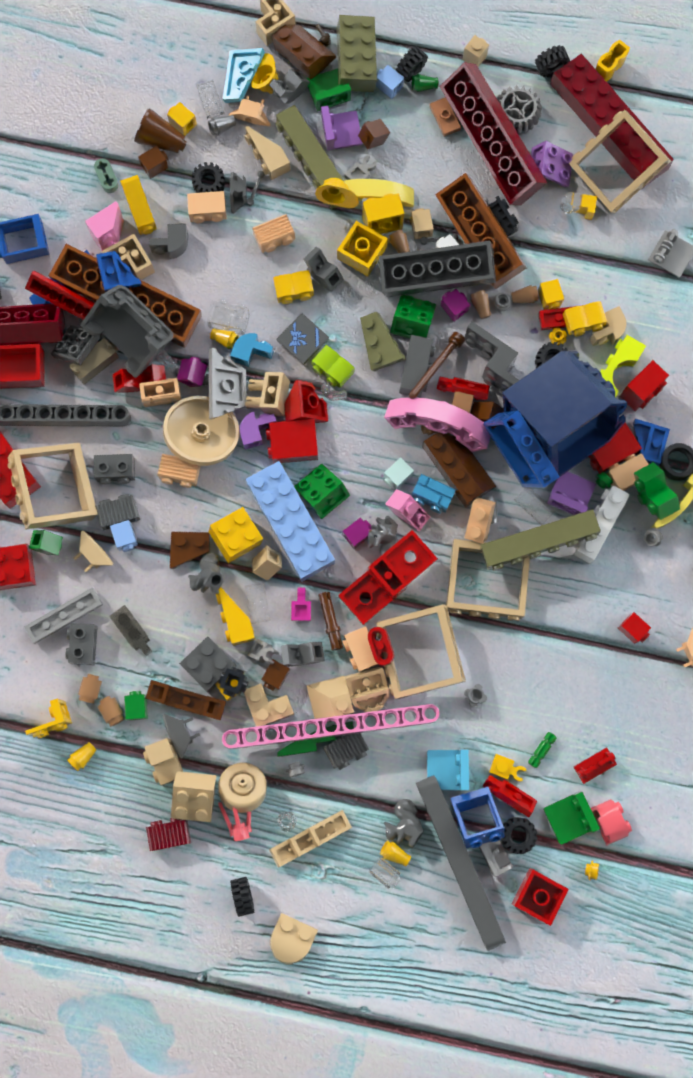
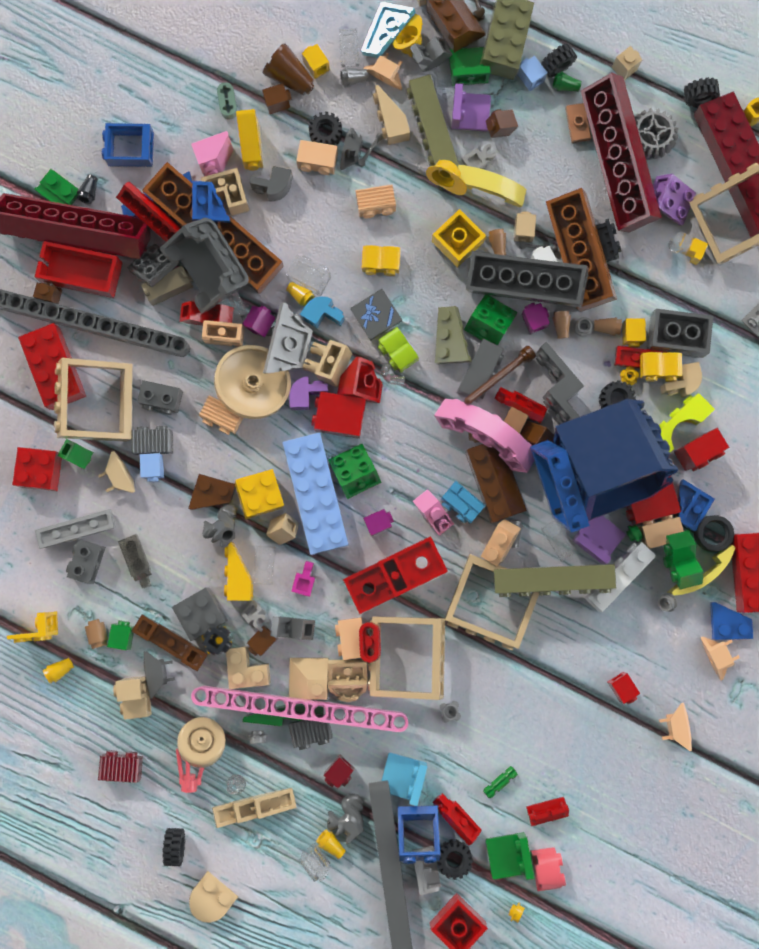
camera: 20 degrees right, 5 degrees up
(89, 688) = (81, 606): medium nougat brick -> none
(193, 796) = (151, 739): tan brick -> none
(322, 271) = (413, 250): dark grey brick -> none
(330, 621) = (329, 602): reddish brown pin -> none
(383, 213) = (489, 208): yellow brick -> none
(383, 534) = (403, 530): dark grey animal -> none
(384, 782) = (339, 772): none -> dark red brick
(398, 474) = (433, 474): light aqua brick -> none
(504, 767) = (458, 789): yellow plate -> none
(594, 283) = (680, 332): none -> dark grey brick

